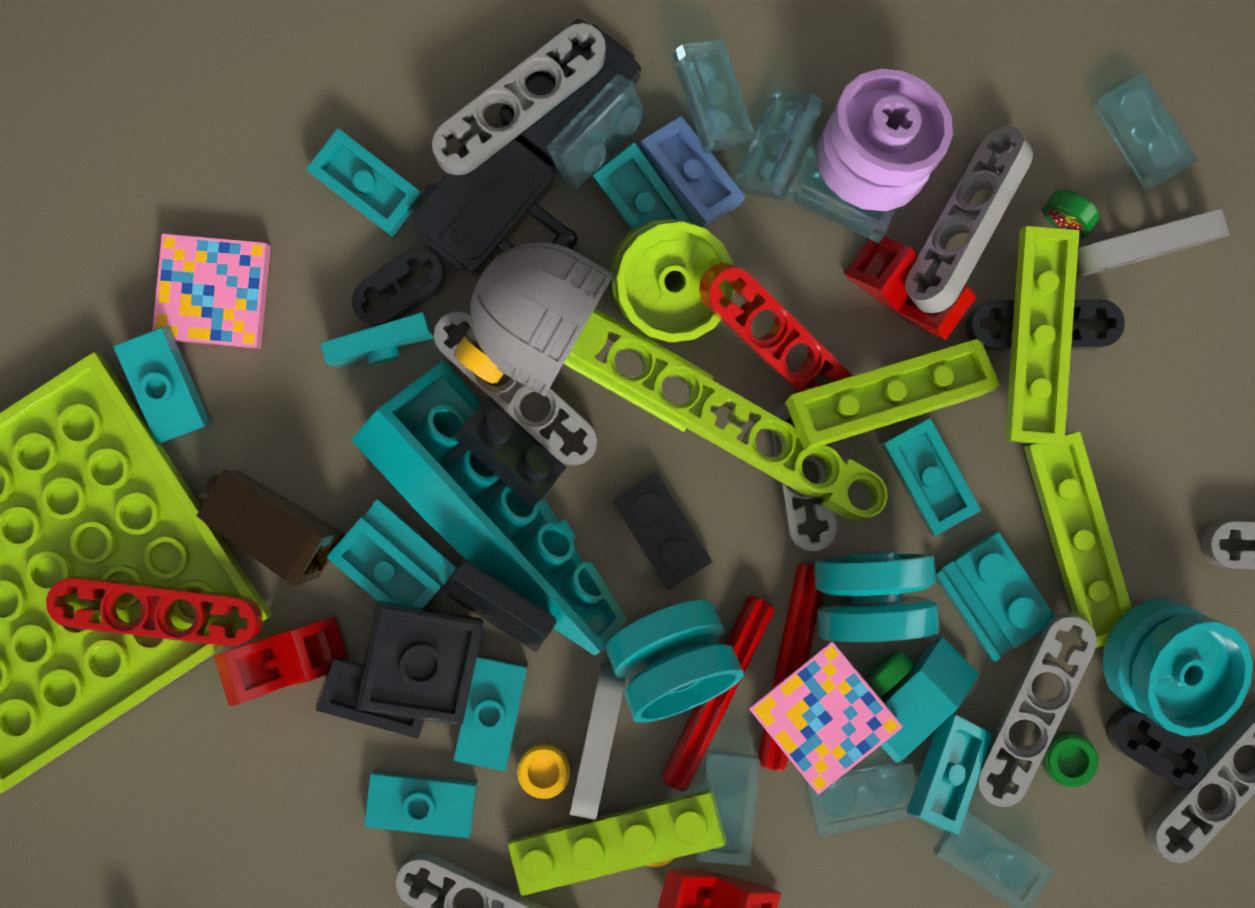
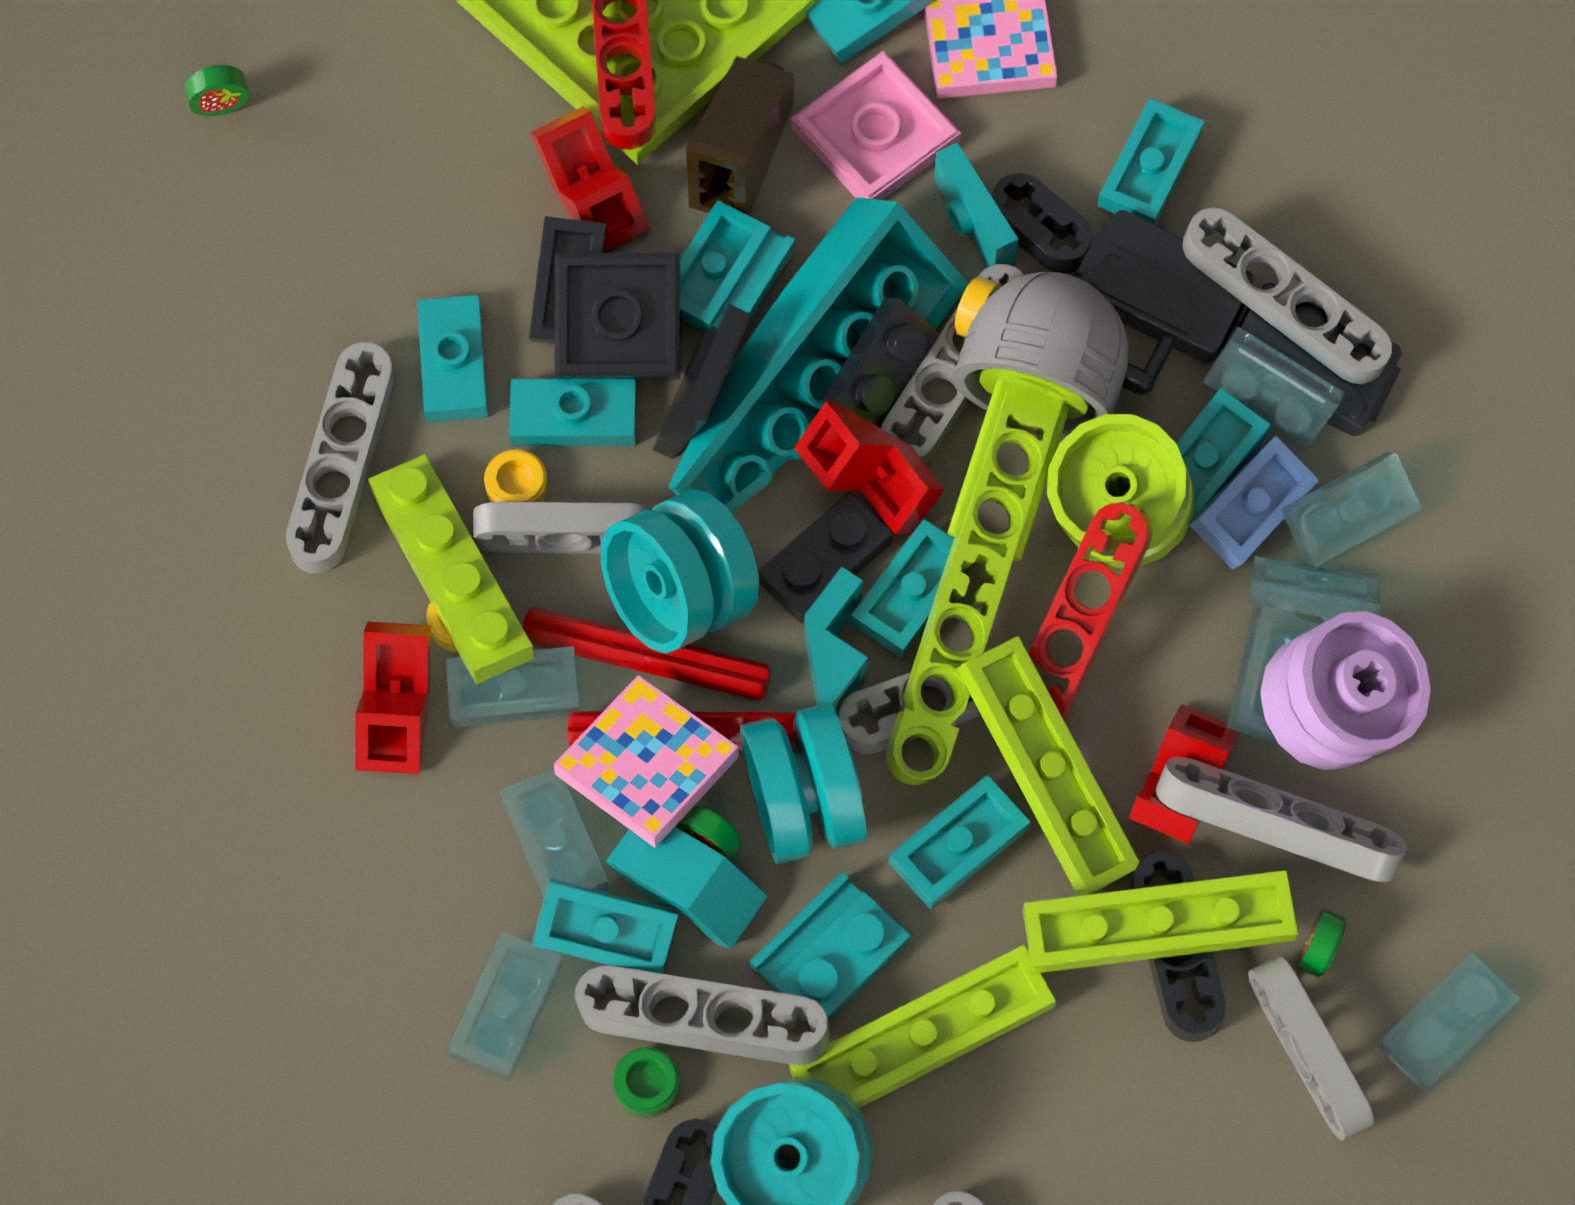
camera: 85 degrees right, 20 degrees down
(281, 407) = (875, 129): none -> bright pink tile
(585, 494) = (861, 457): none -> red slope
(710, 471) = (903, 595): none -> teal plate
(767, 546) = (833, 664): none -> teal slope

